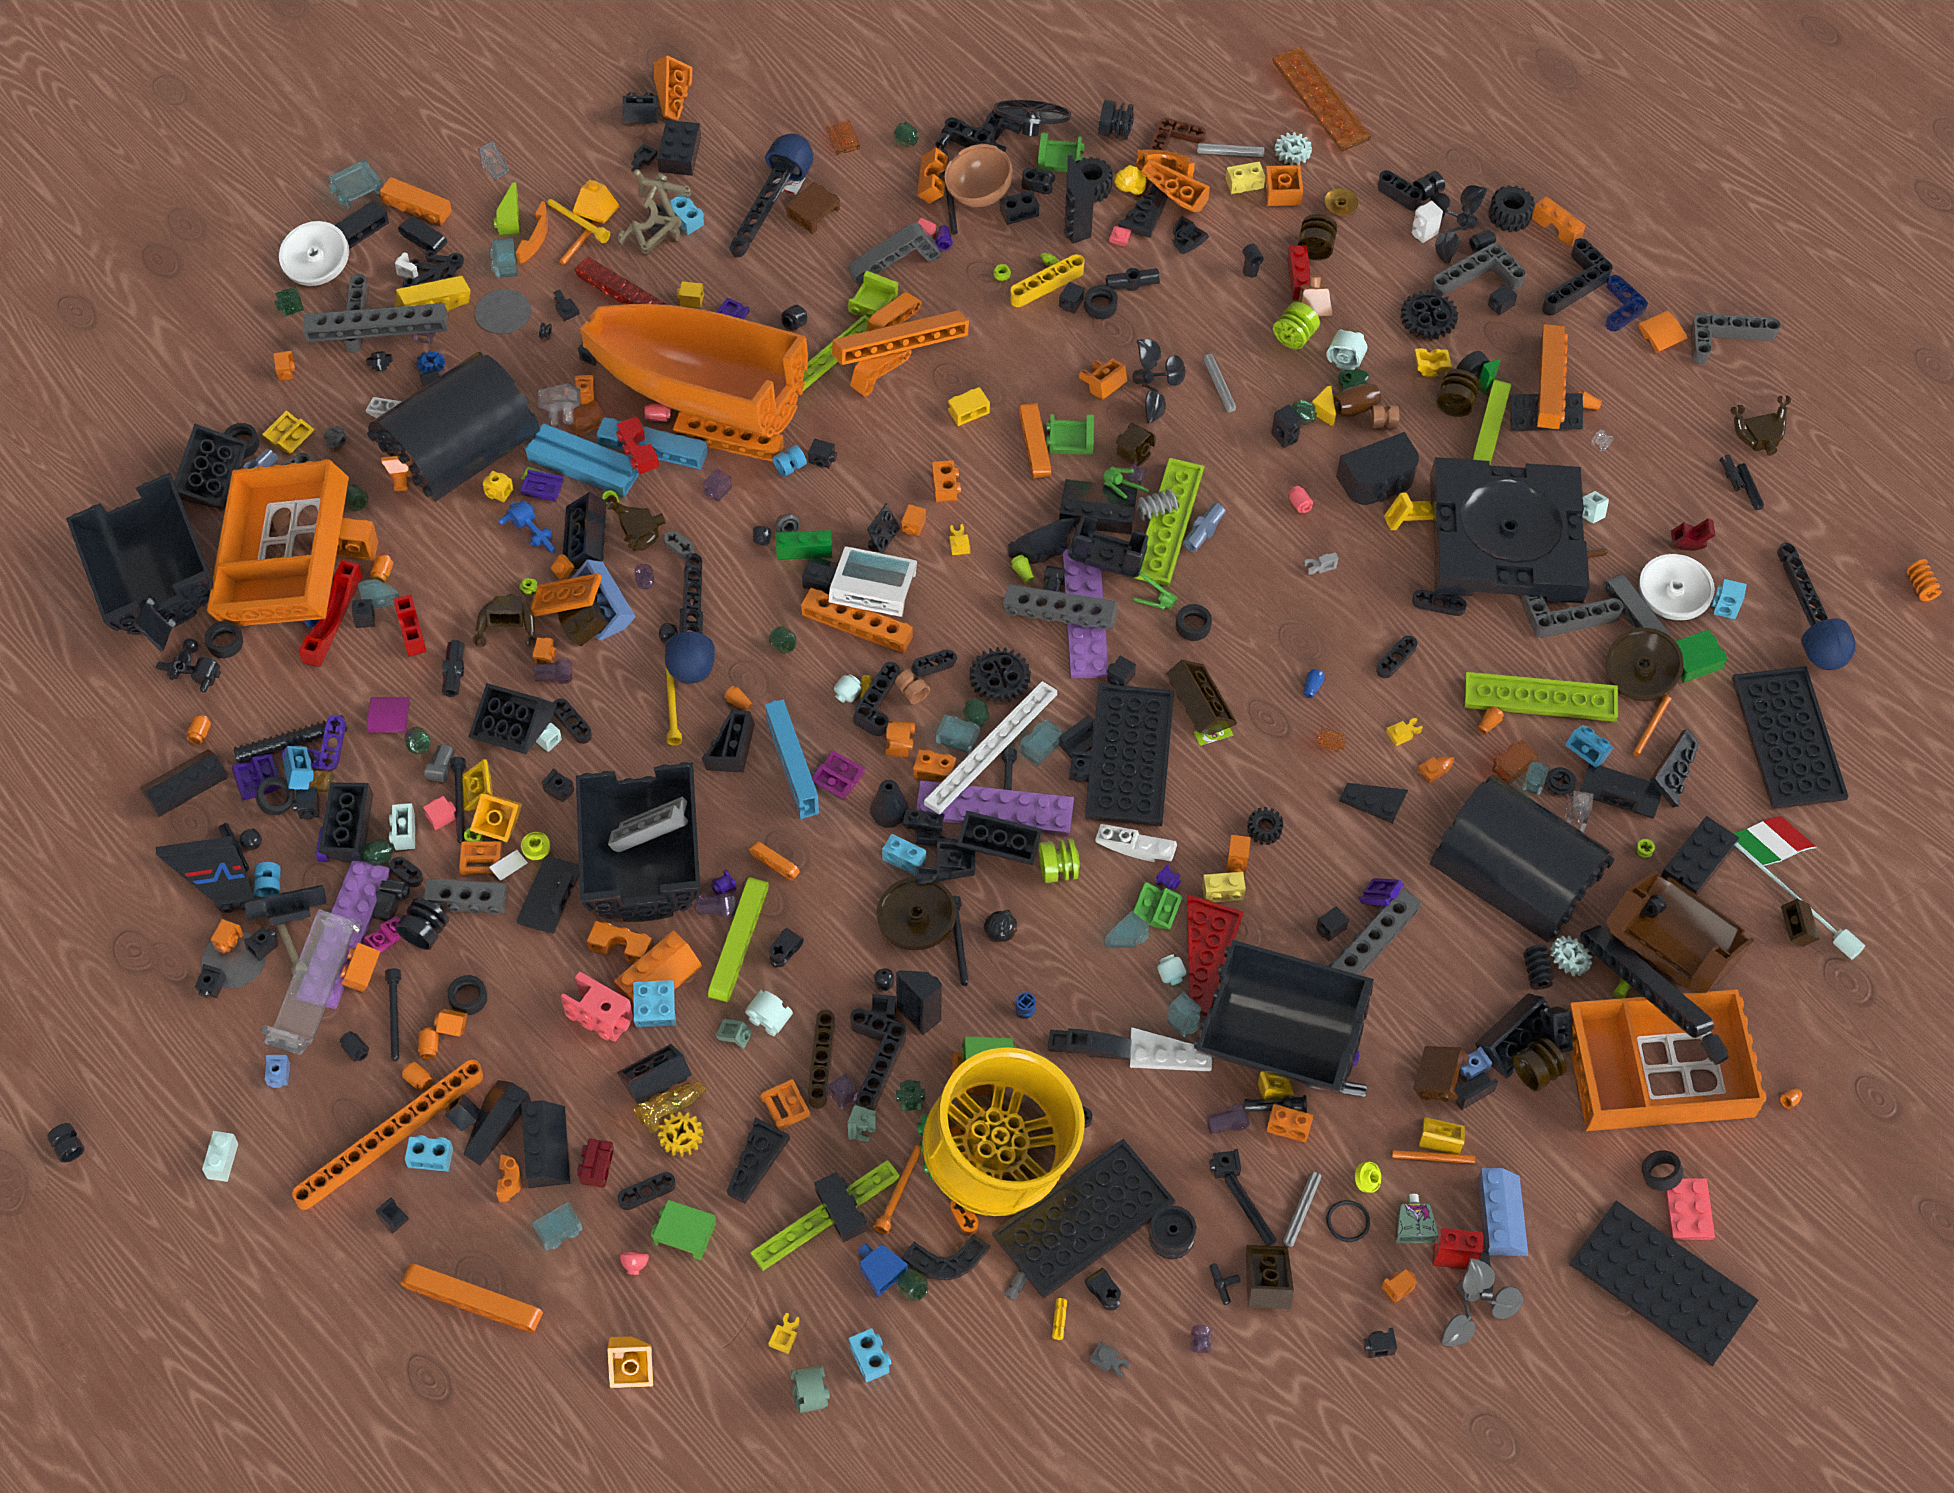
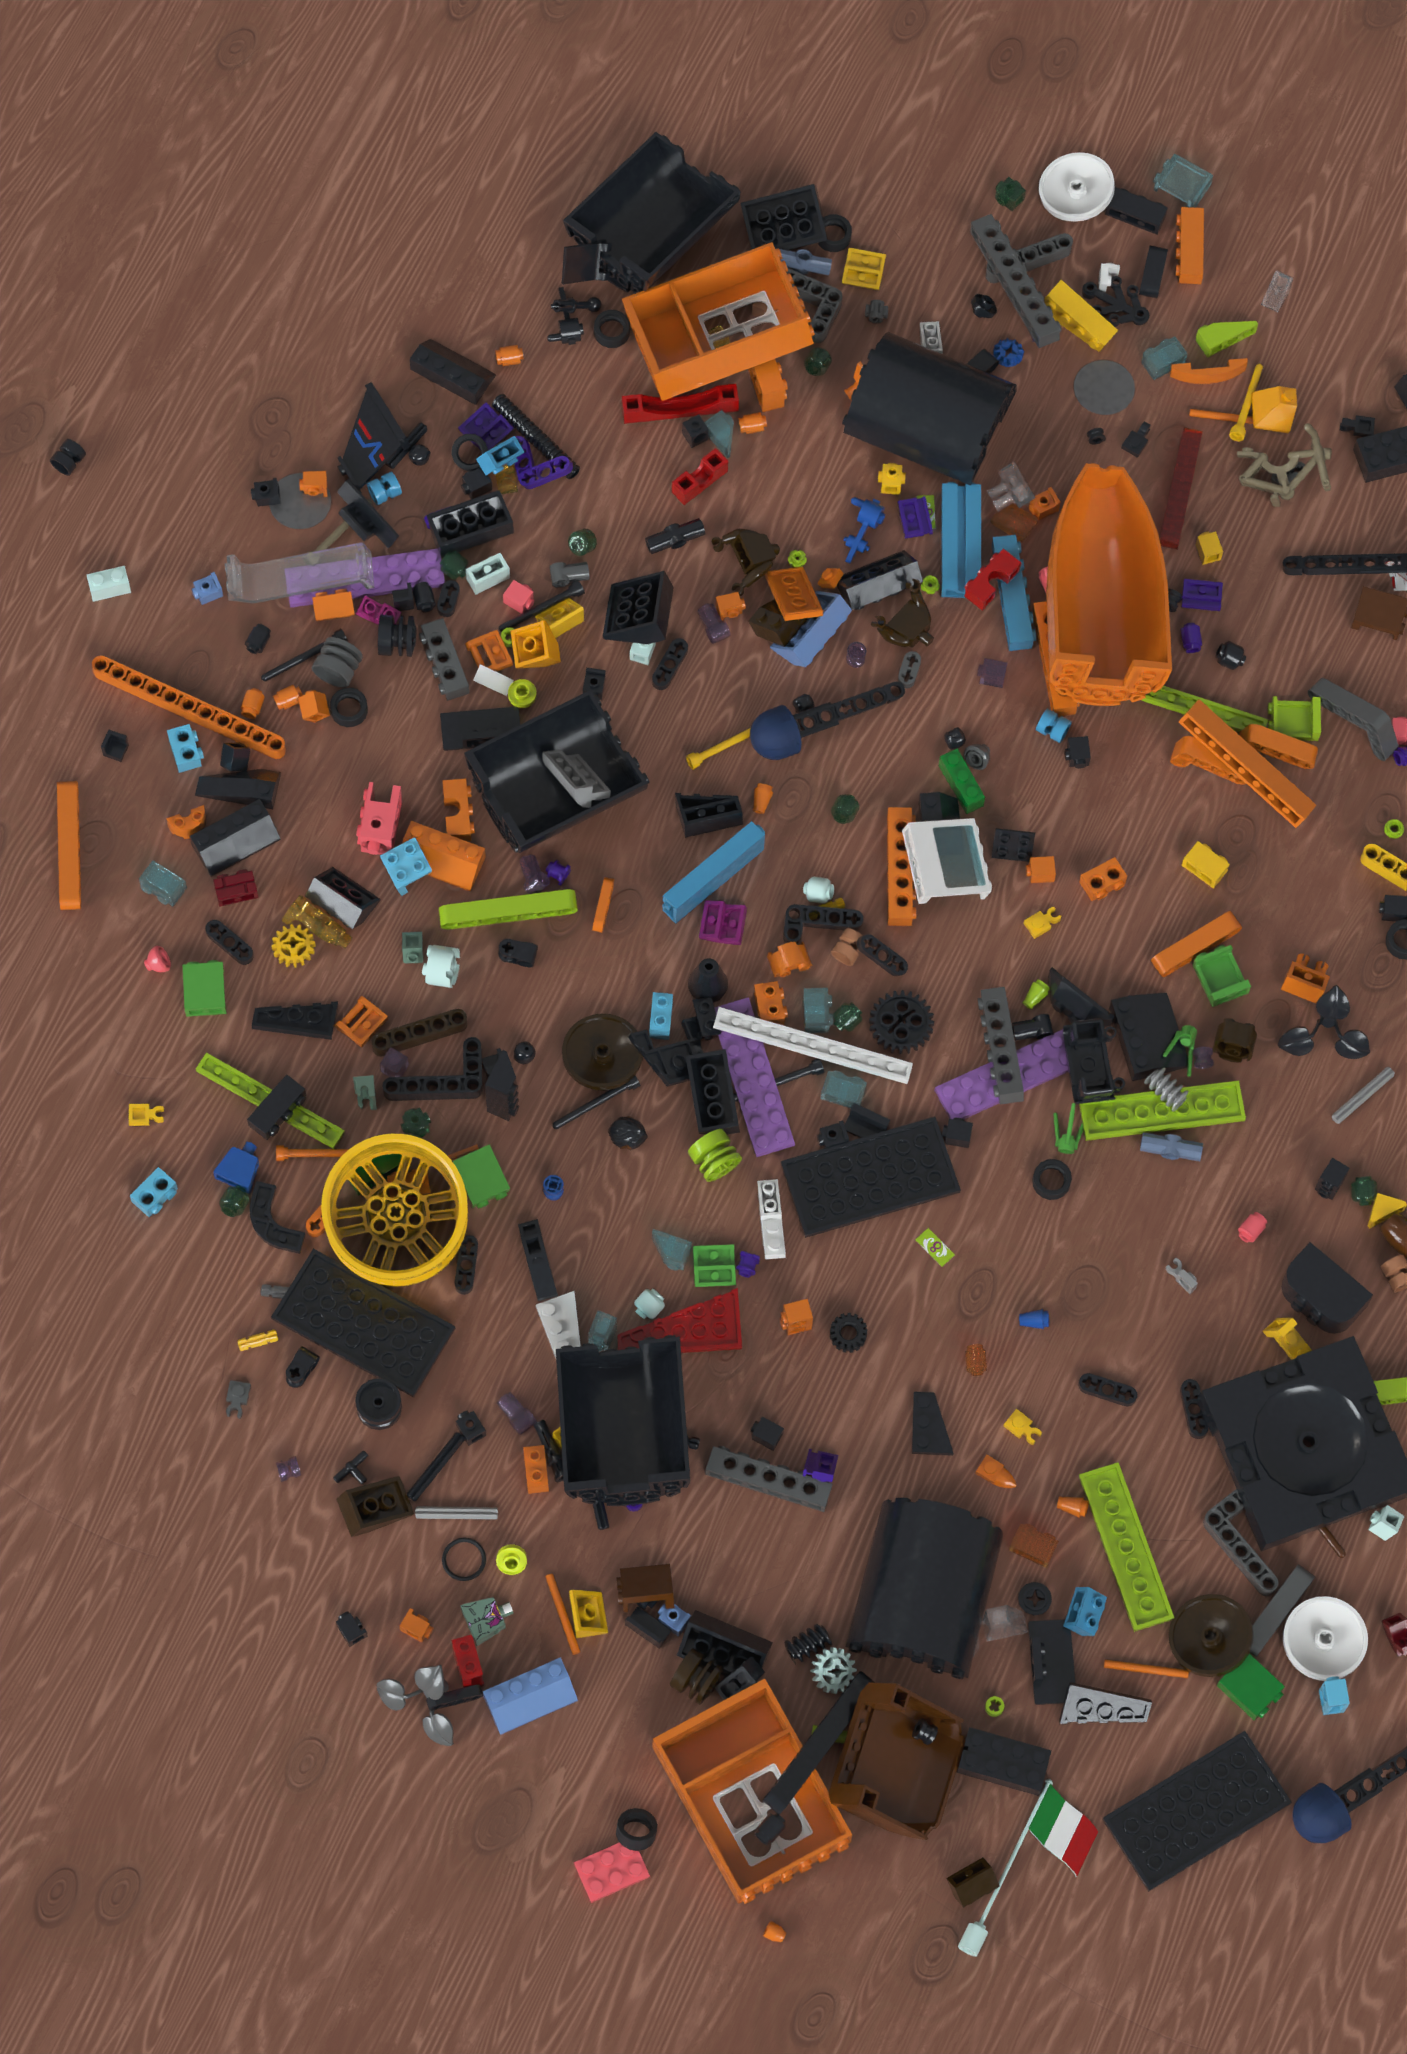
camera: 65 degrees right, 10 degrees up
(257, 946) = (316, 518): black brick -> none
(284, 365) = (935, 227): orange brick -> none
(388, 714) = (600, 505): magenta slope -> none
(420, 983) = (337, 662): none -> dark grey wheel
(629, 1362) = (63, 996): light orange slope -> none
(689, 214) = (1305, 496): medium azure brick -> none
(808, 1389) = (98, 1154): sand green brick -> none
(1200, 697) = (966, 1219): dark brown slope -> none
(1224, 887) = (760, 1318): light yellow brick -> none
(1535, 777) = (1025, 1571): clear light blue brick -> none
(1664, 1282) = (524, 1869): black plate -> none

